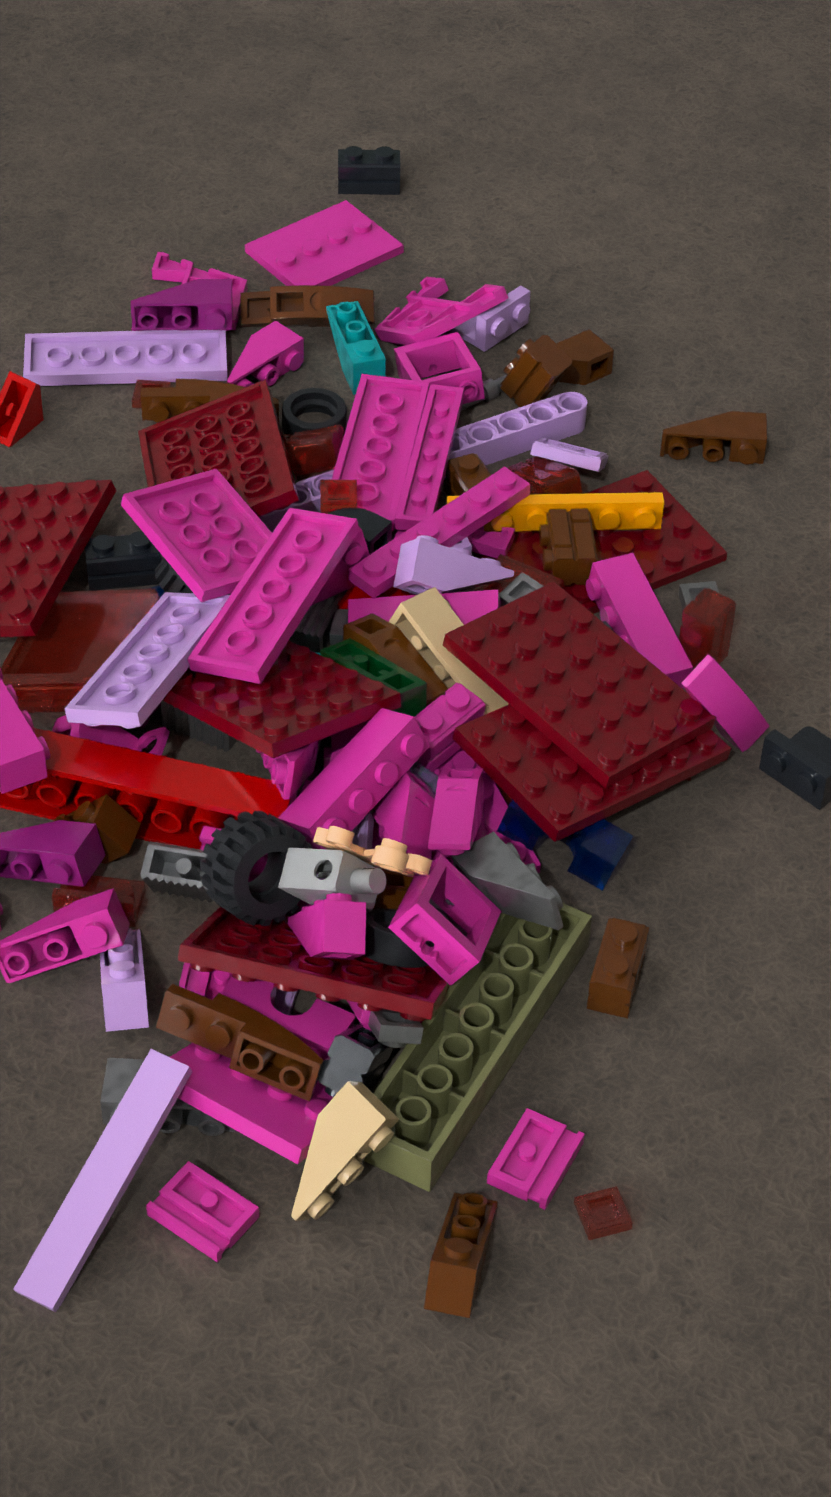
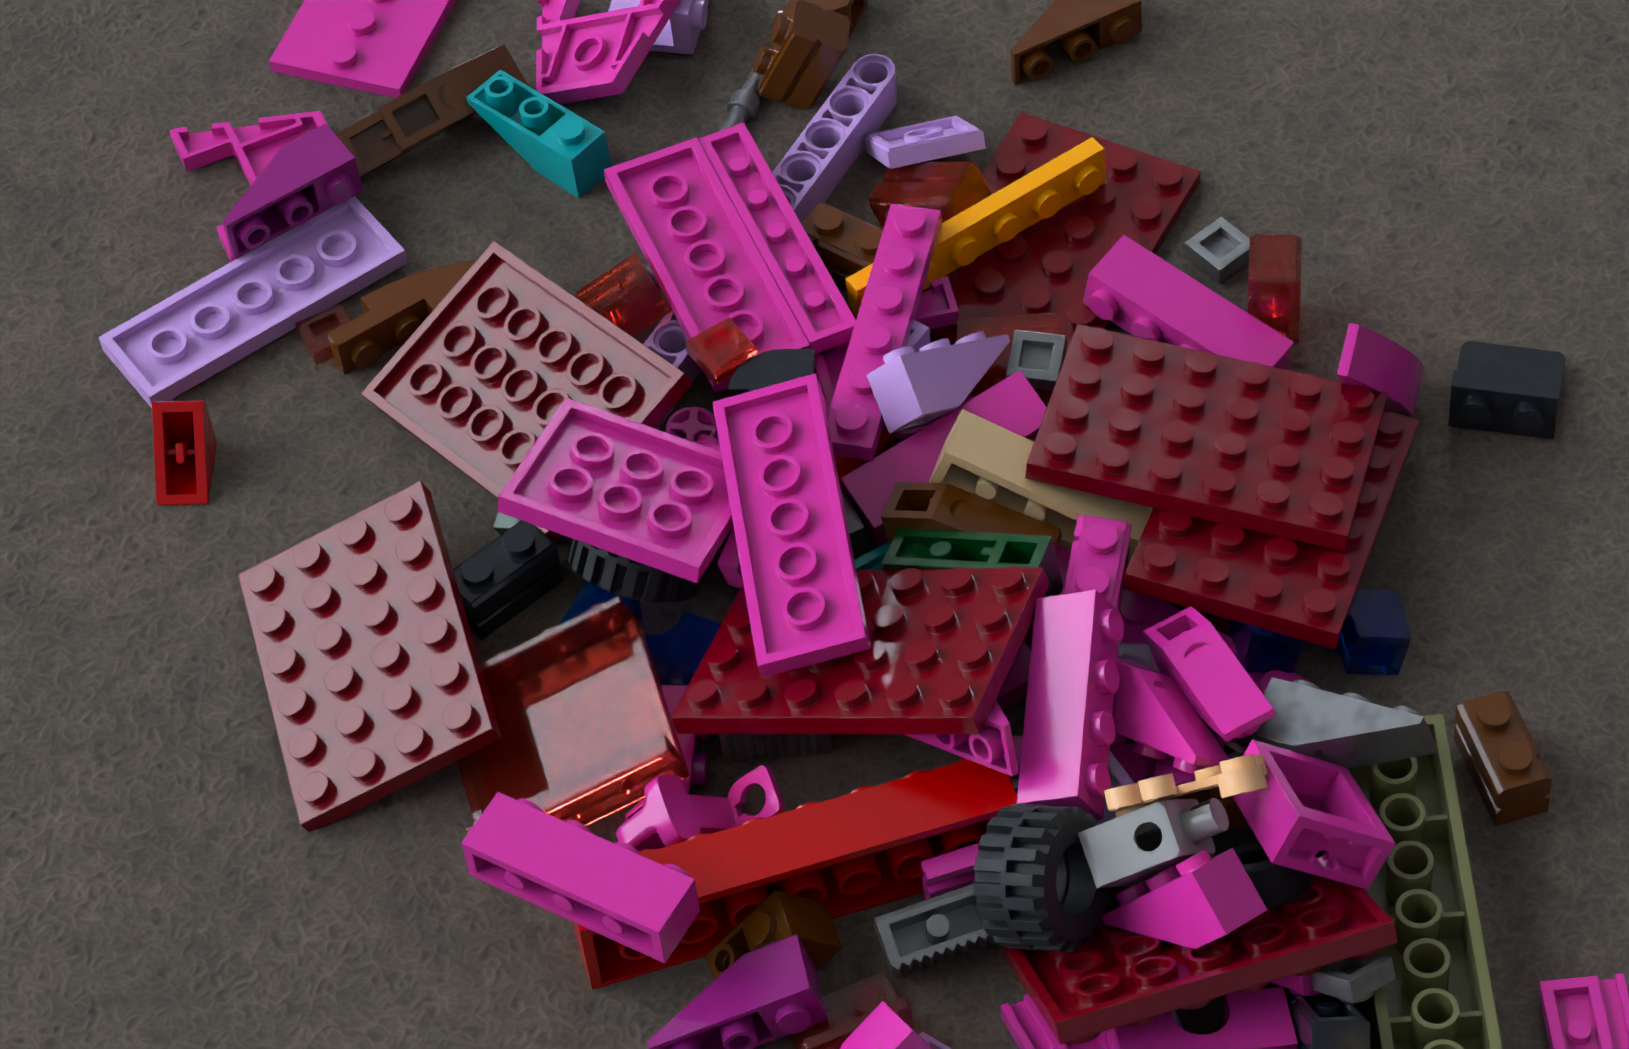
camera: 25 degrees left, 5 degrees up
(145, 663) = (706, 692): lavender plate -> none
(268, 355) = (440, 200): dark pink slope -> none
(312, 401) = (562, 228): black tyre -> none
(440, 356) = (656, 88): dark pink window -> none
(568, 544) = (1031, 264): reddish brown brick -> none

